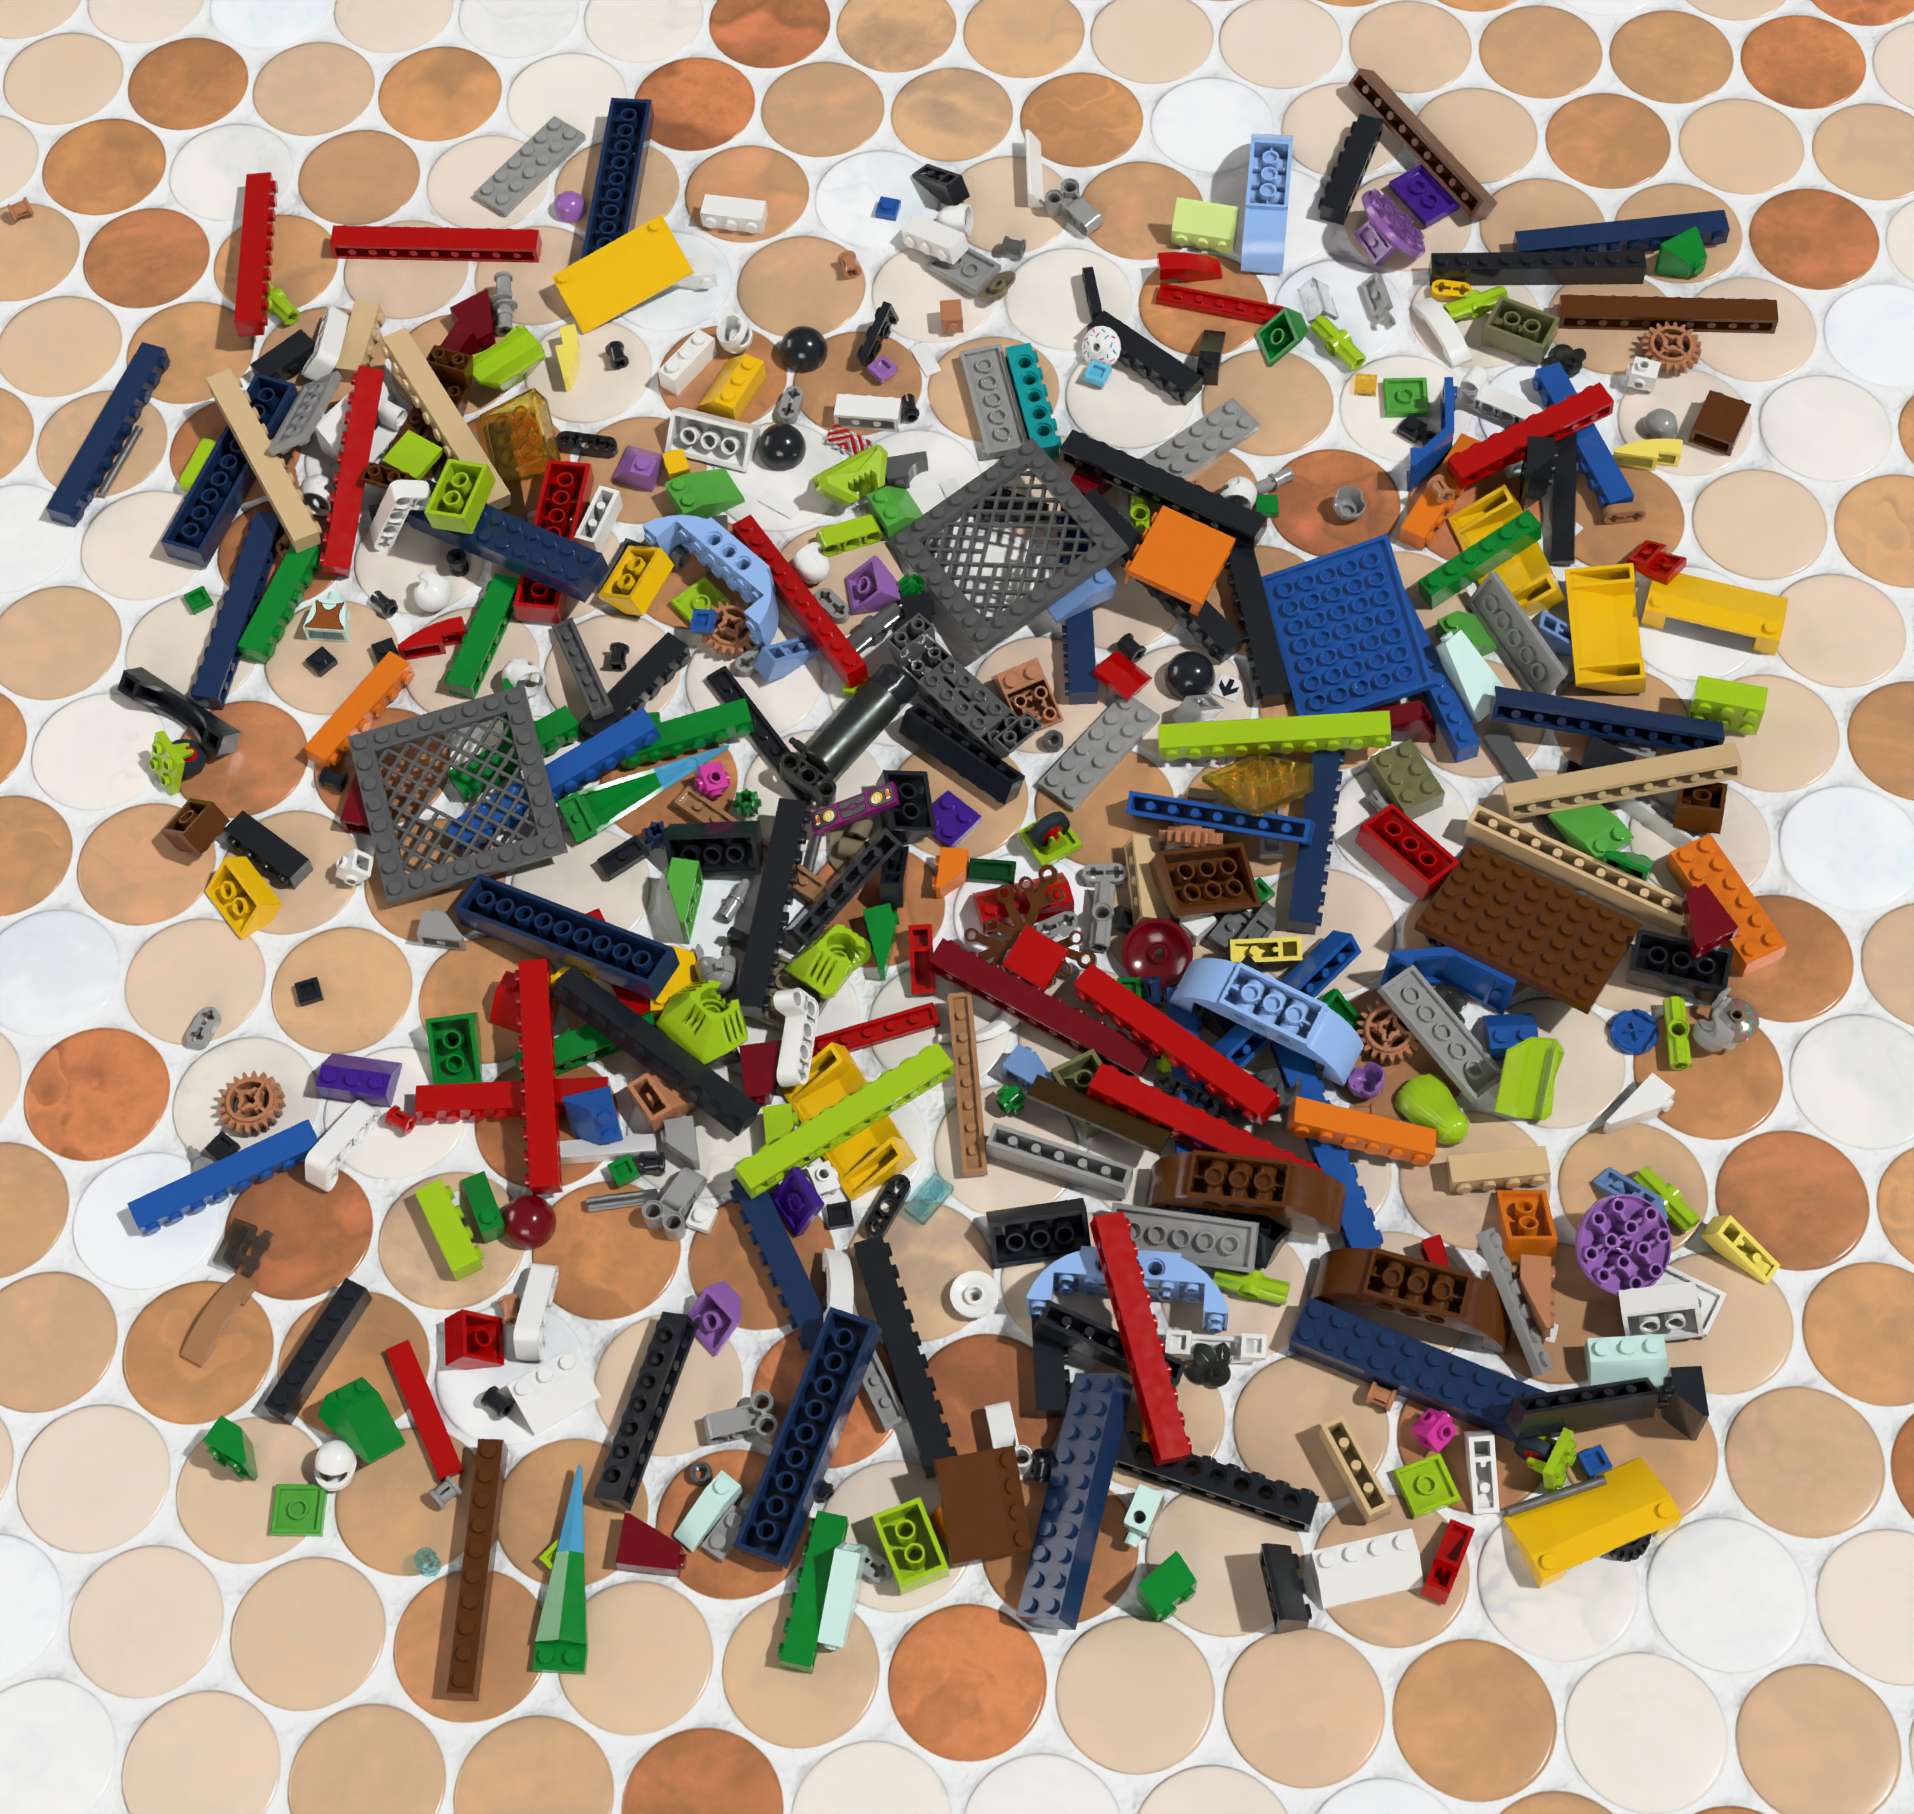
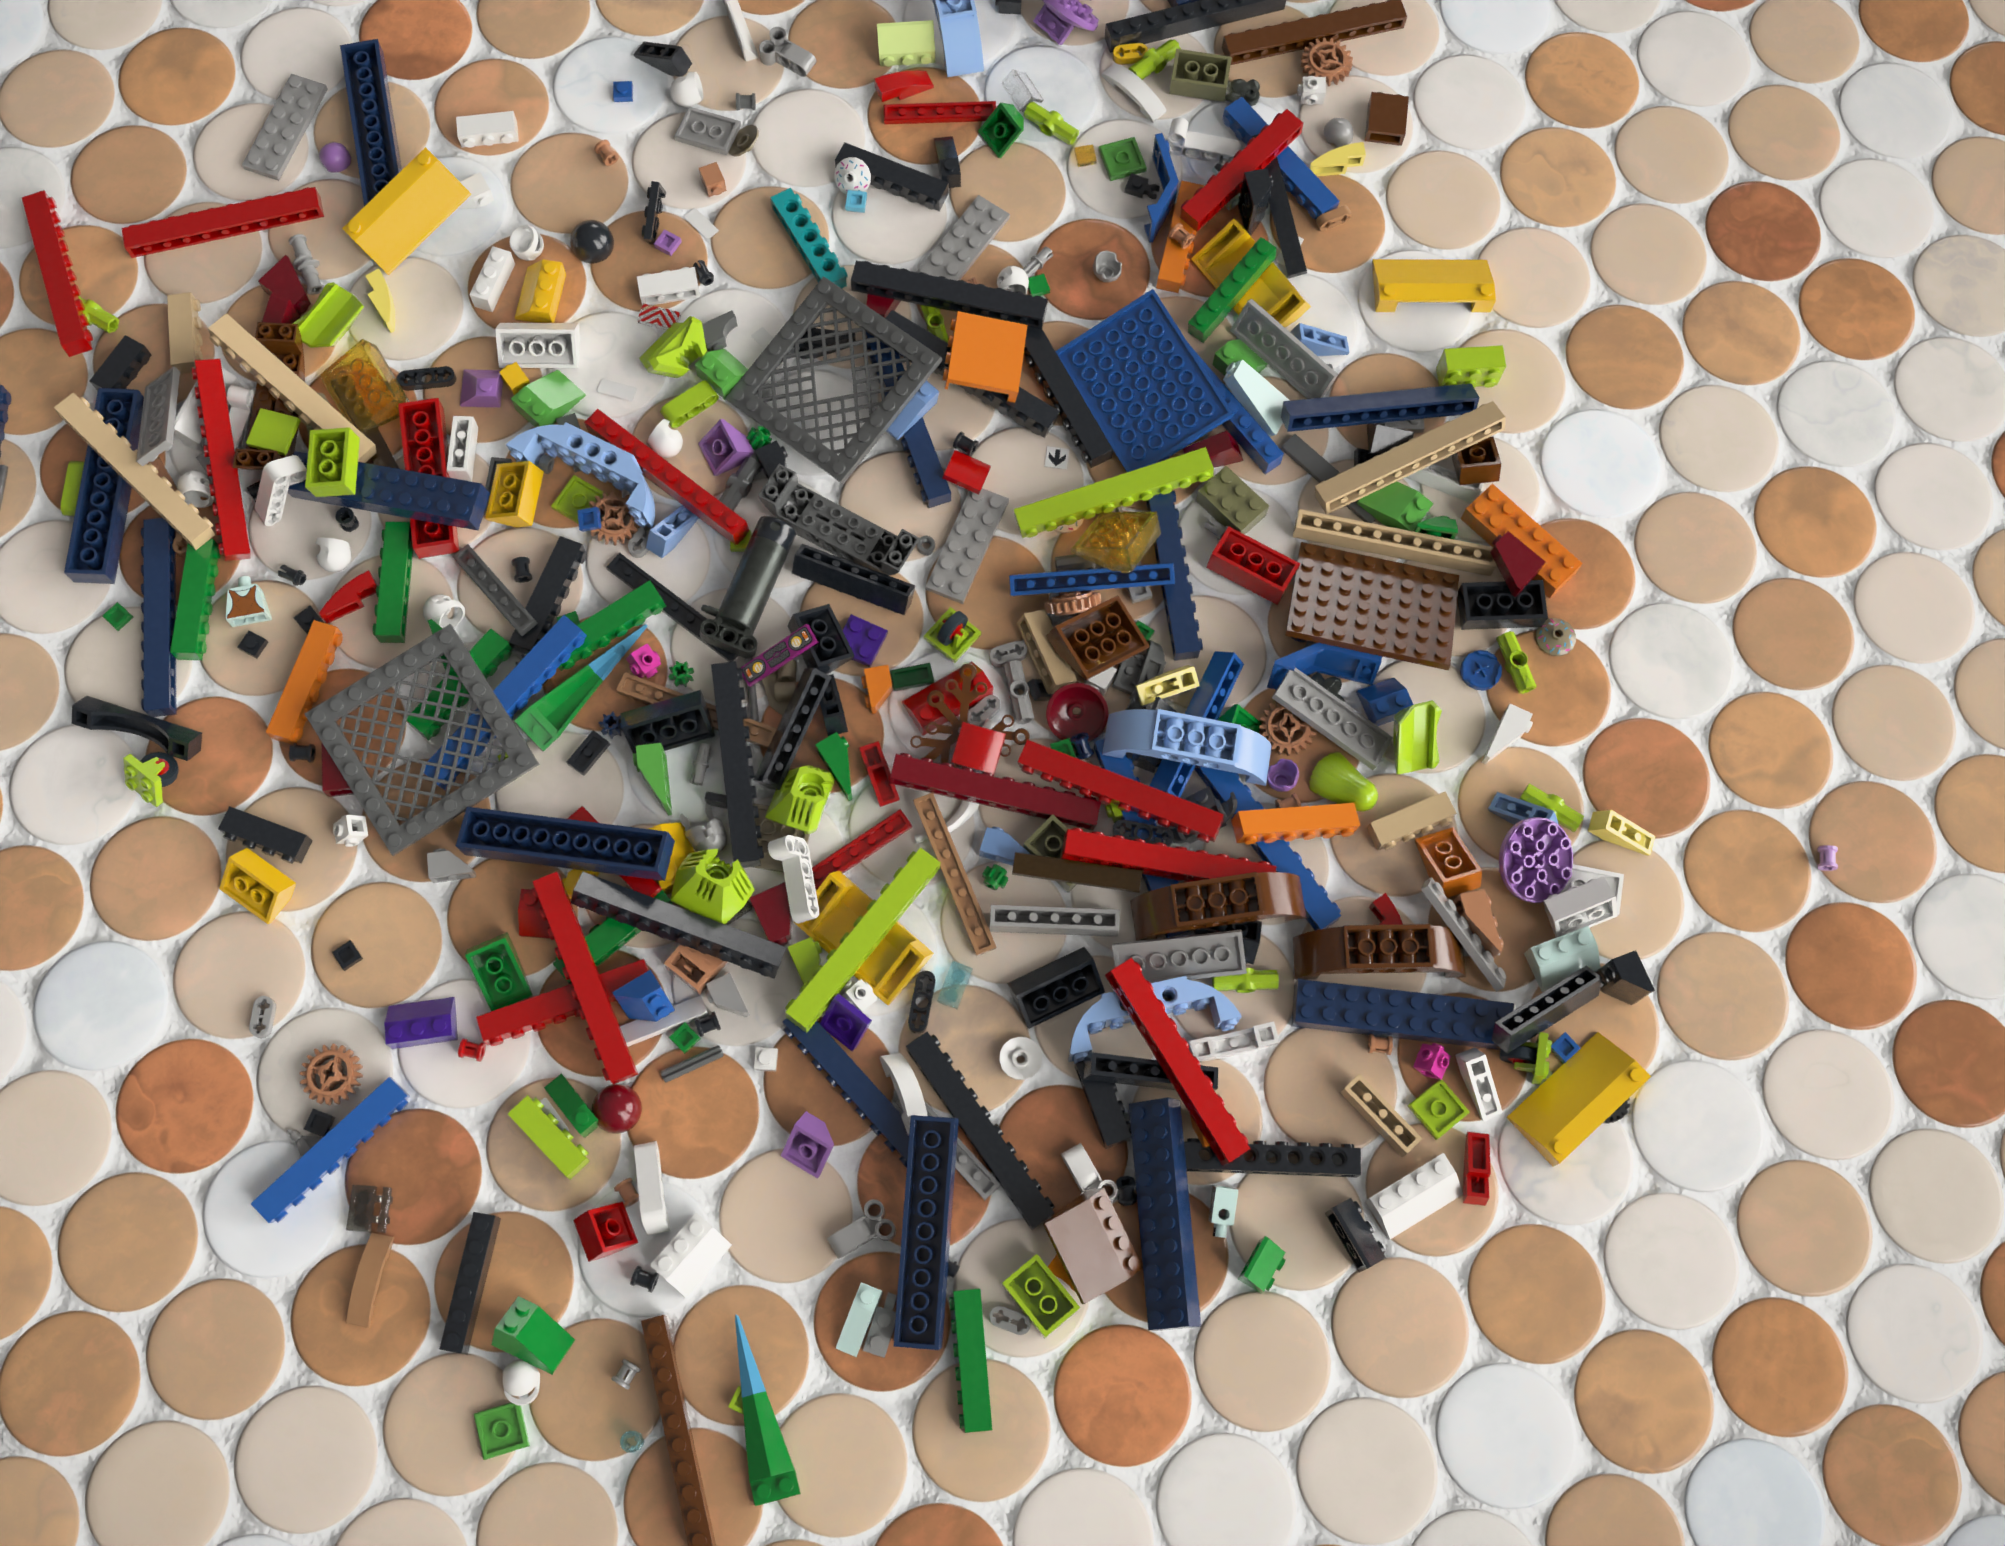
camera: 25 degrees left, 10 degrees up
(195, 826) = (190, 833): reddish brown brick -> none
(231, 1447) = (426, 1395): green slope -> none
(327, 344) = (156, 343): white beam -> none
(338, 1143) = (416, 1111): white beam -> none
(424, 1410) = (582, 1305): red tile -> none
(617, 356) = (428, 291): black bush -> none
(645, 1411) = (783, 1257): black brick -> none
(648, 1550) = (819, 1369): dark red slope -> none
(675, 1204) = (740, 1053): light grey piece -> none
(698, 1466) = (848, 1286): dark grey axle -> none
(781, 447) = (602, 337): black piece -> none
(787, 404) = (601, 296): light grey beam -> none
(835, 602) = (696, 469): light grey beam -> none
(840, 1215) = (883, 1021): black tile -> none
(841, 1594) = (998, 1357): light aqua slope -> none
(934, 239) = (675, 111): white brick -> none
(993, 400) = (774, 248): light grey plate -> none
(1027, 689) = (891, 508): nougat slope -> none
(1091, 292) = (827, 128): black beam -> none
(1189, 675) = (1022, 456): black piece -> none
(1197, 709) = (1039, 486): light grey slope -> none
(1207, 1362) = (1232, 1056): pearl dark grey plate -> none
(1378, 299) = (1072, 75): light grey plate -> none
(1556, 1495) = (1542, 1087): flat silver bar -> none
(1605, 628) = (1352, 325): yellow slope -> none
(1654, 563) = (1372, 256): red slope -> none
(1719, 1032) = (1549, 652): light grey hair -> none

